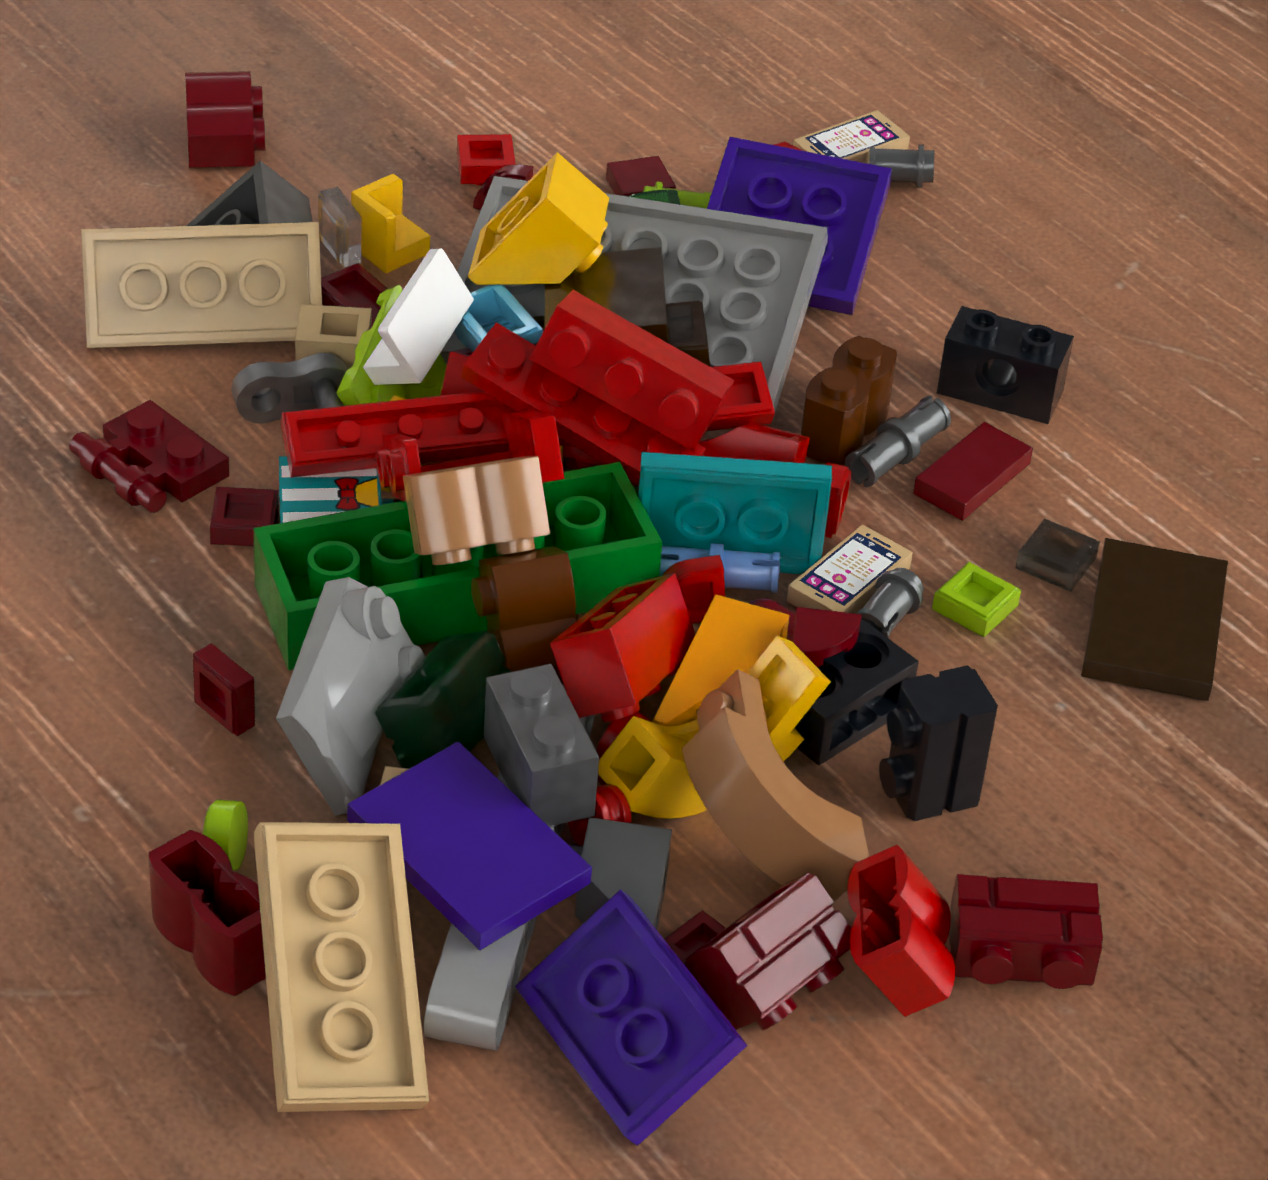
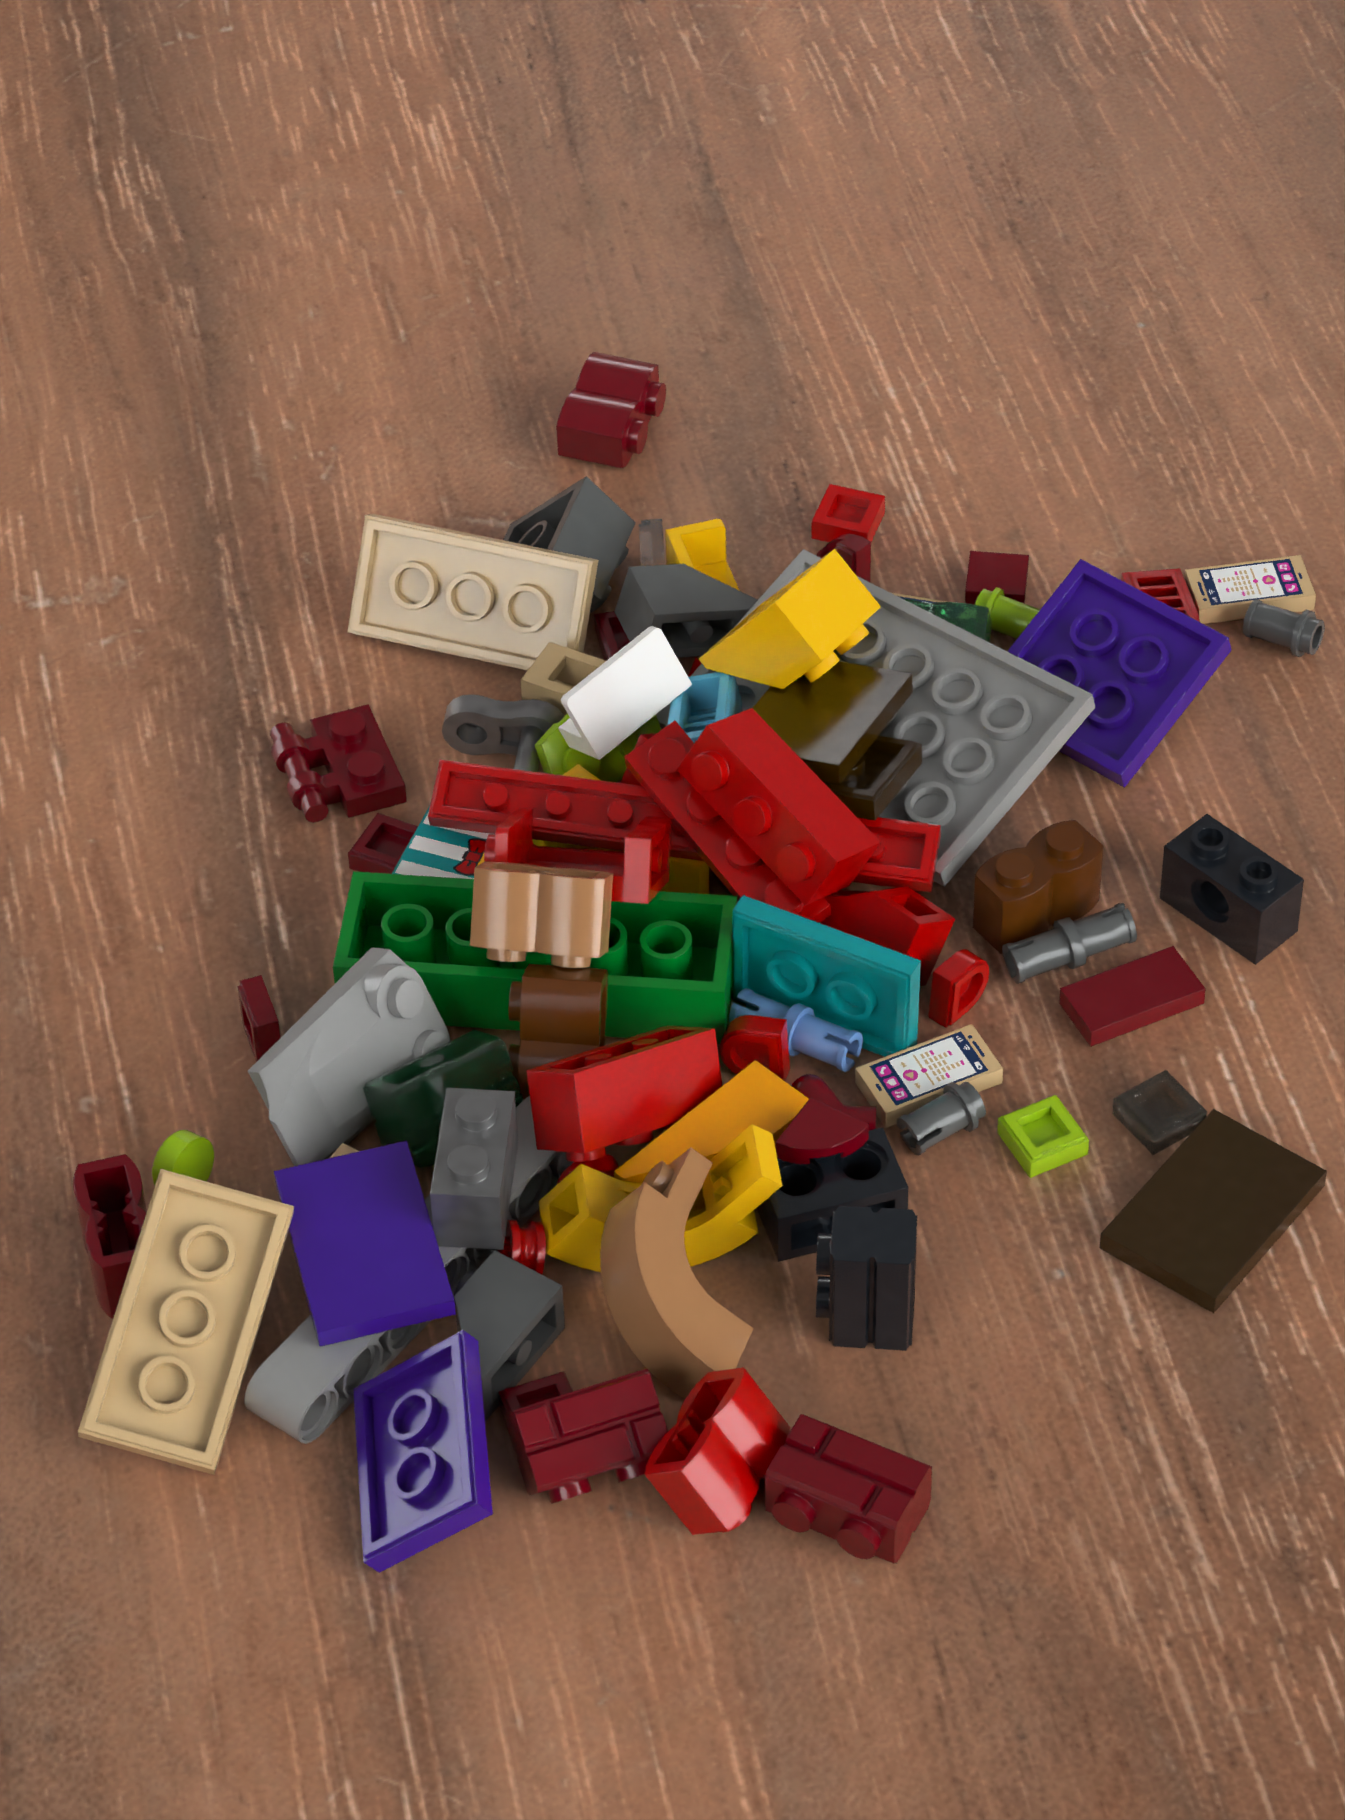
camera: 30 degrees right, 5 degrees up
(389, 249) = (682, 603): none -> dark grey slope

